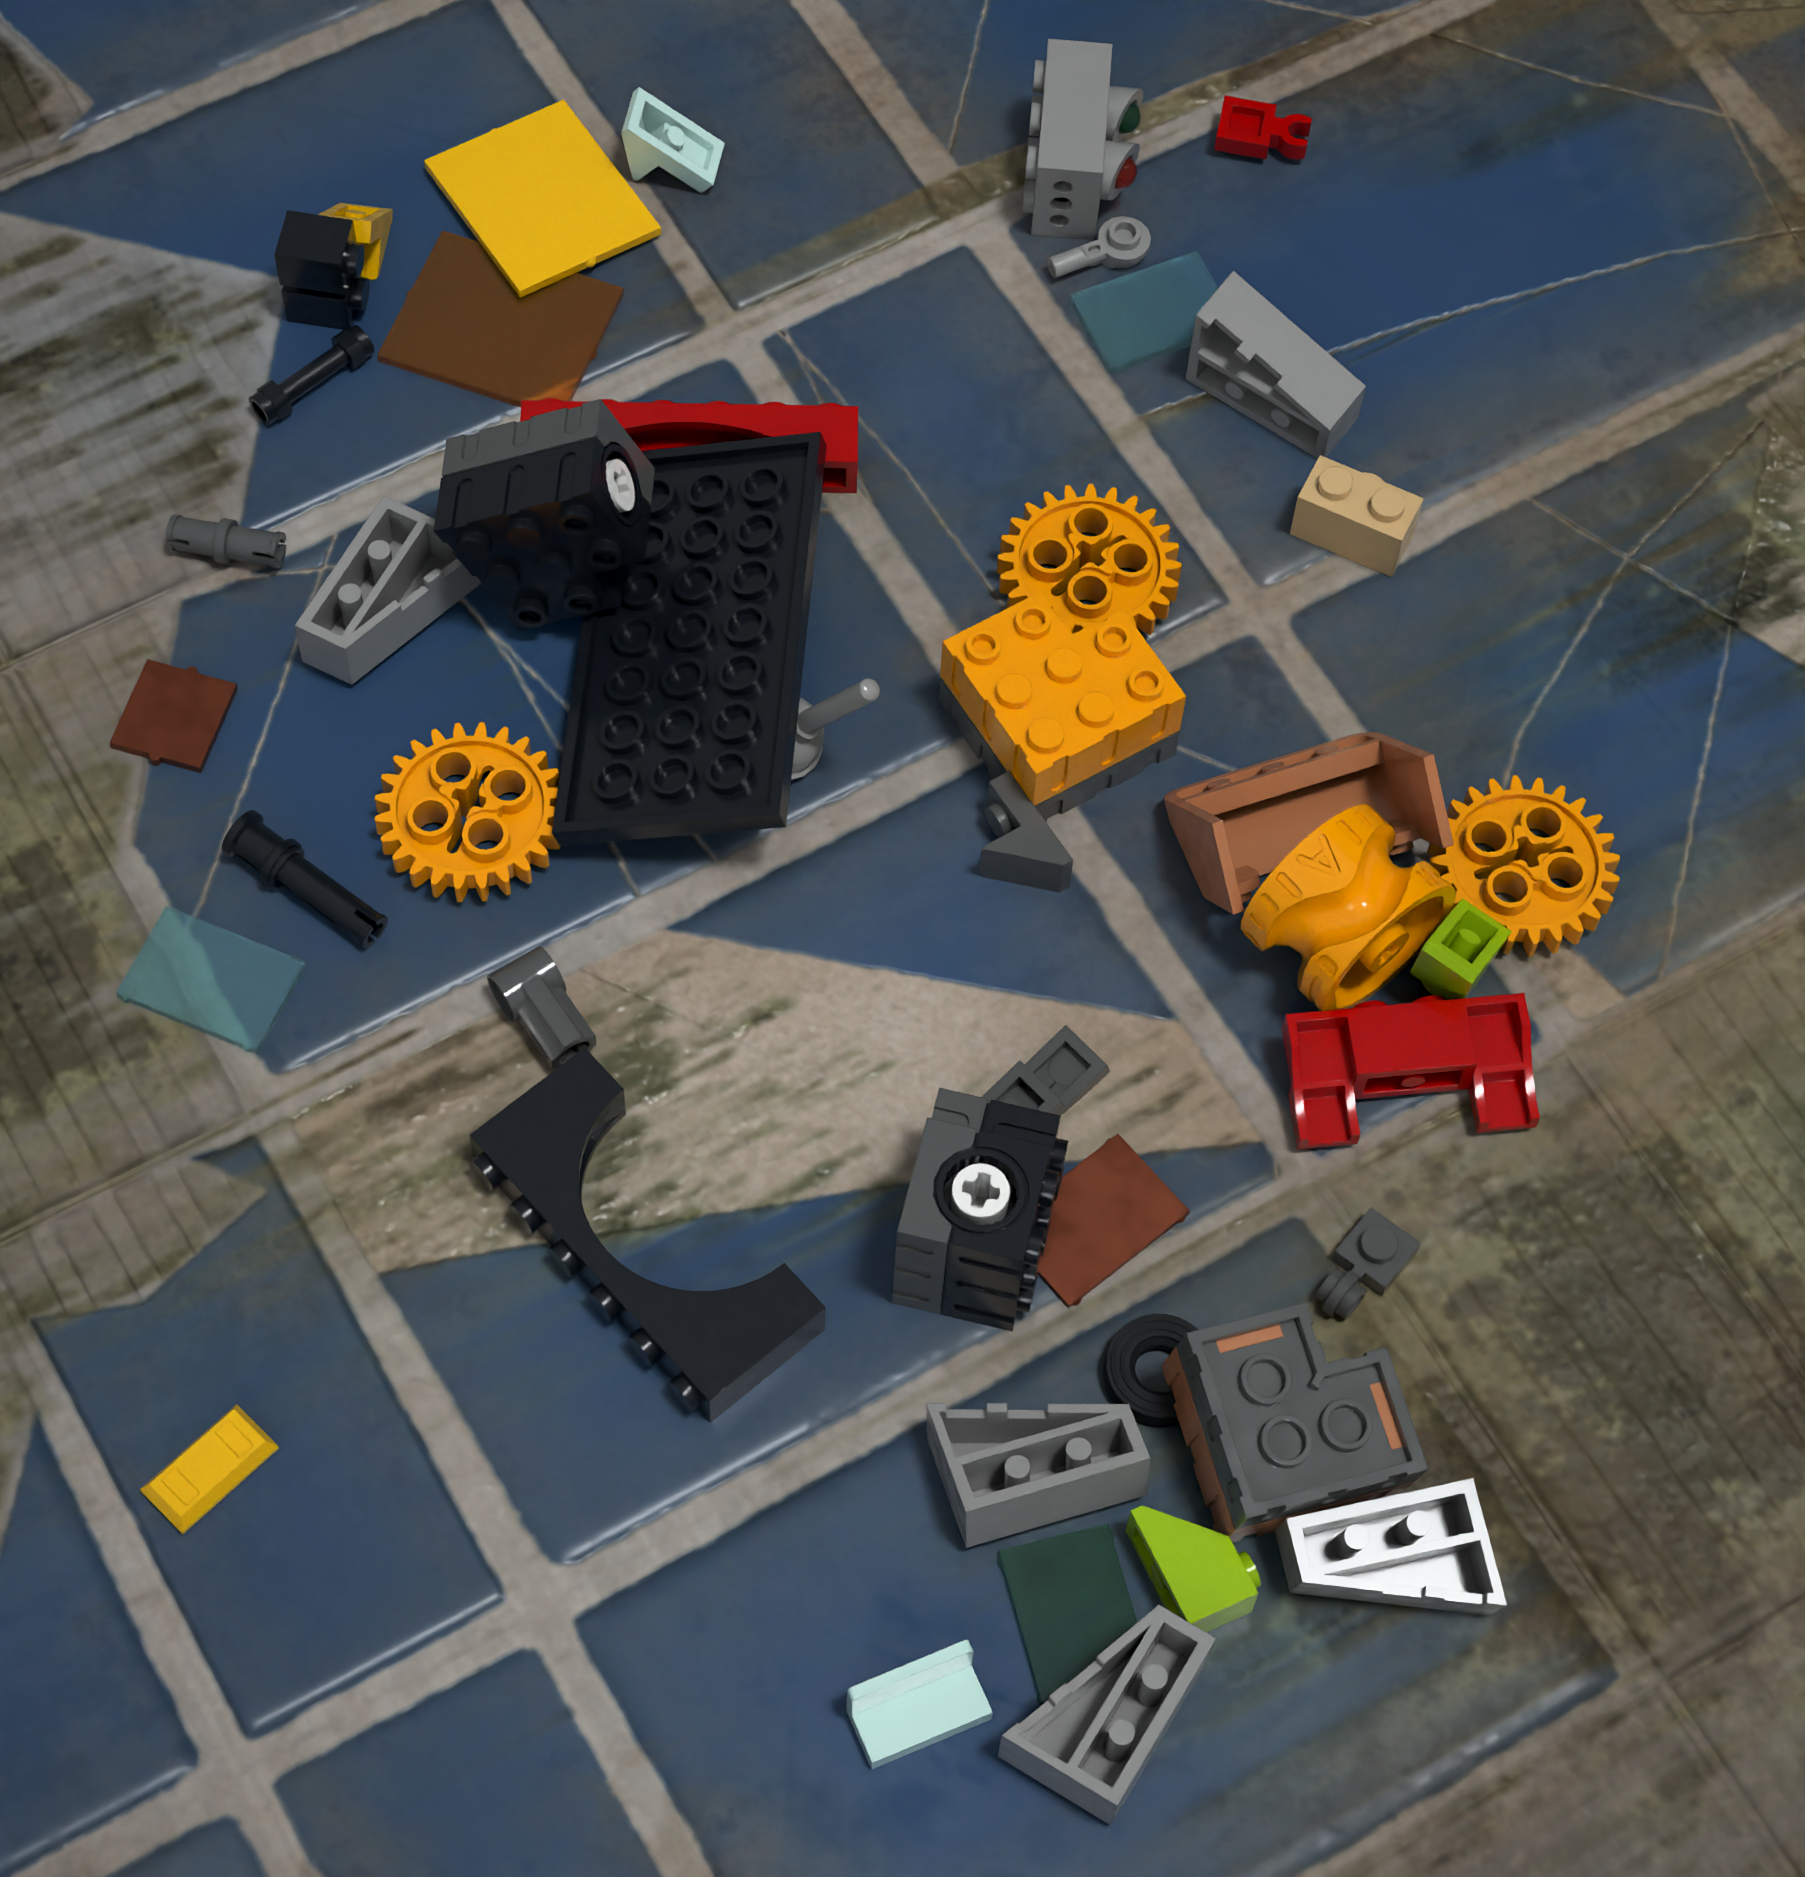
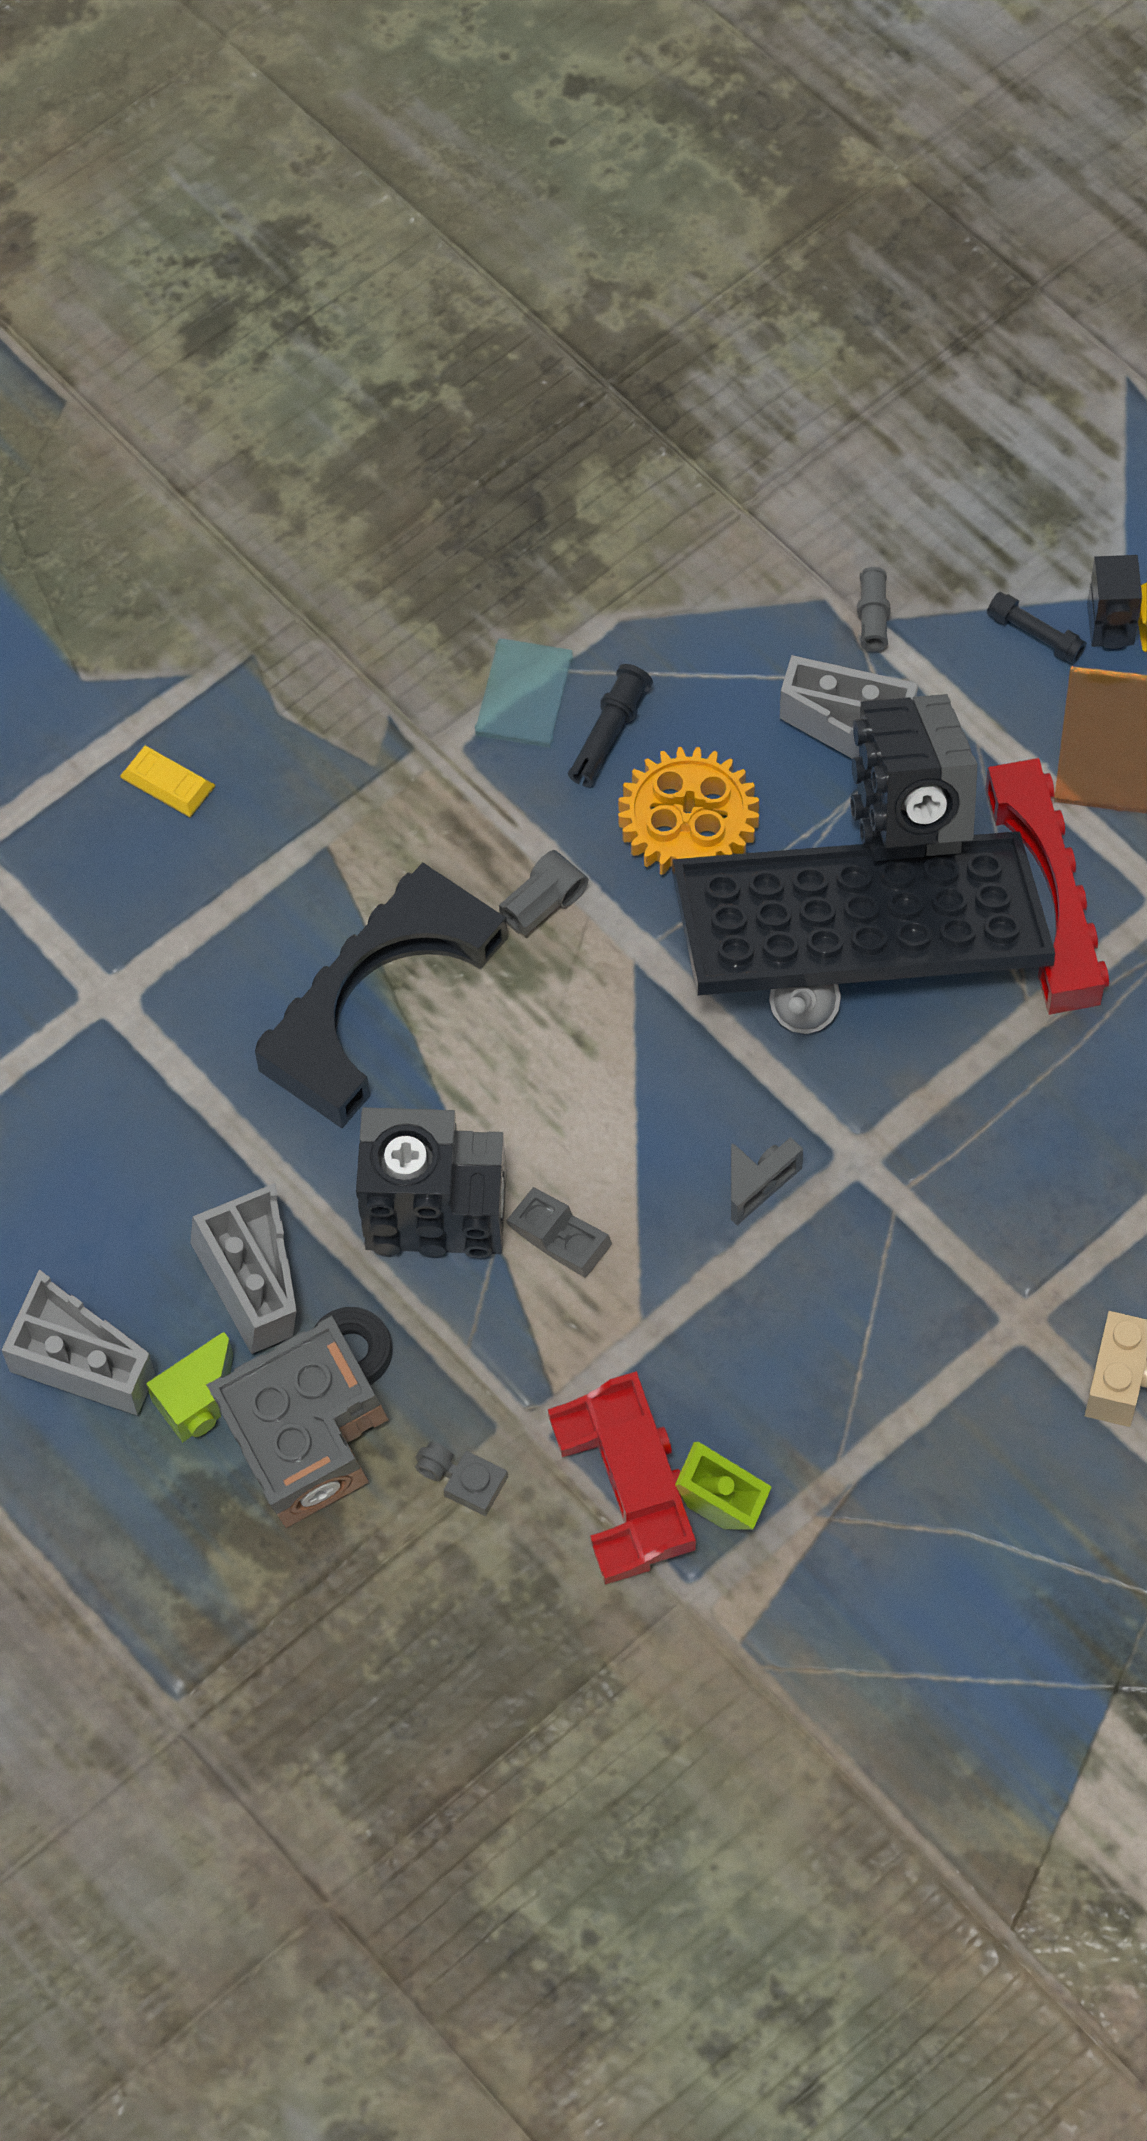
camera: 85 degrees right, 0 degrees up
(174, 716) = (726, 617): copper piece -> none
(917, 1704) = (71, 1234): light aqua panel -> none
(1055, 538) = (992, 1211): light orange gear -> none
(1060, 704) = (868, 1172): light orange piece -> none
(1067, 1602) = (167, 1318): clear green piece -> none
(1104, 1218) = (464, 1293): copper piece -> none
(1258, 814) = (827, 1353): nougat windscreen -> none
(1348, 909) = (731, 1393): light orange piece -> none
(1397, 1550) = (230, 1519): wedge -> none
(1527, 862) = (865, 1523): light orange gear -> none

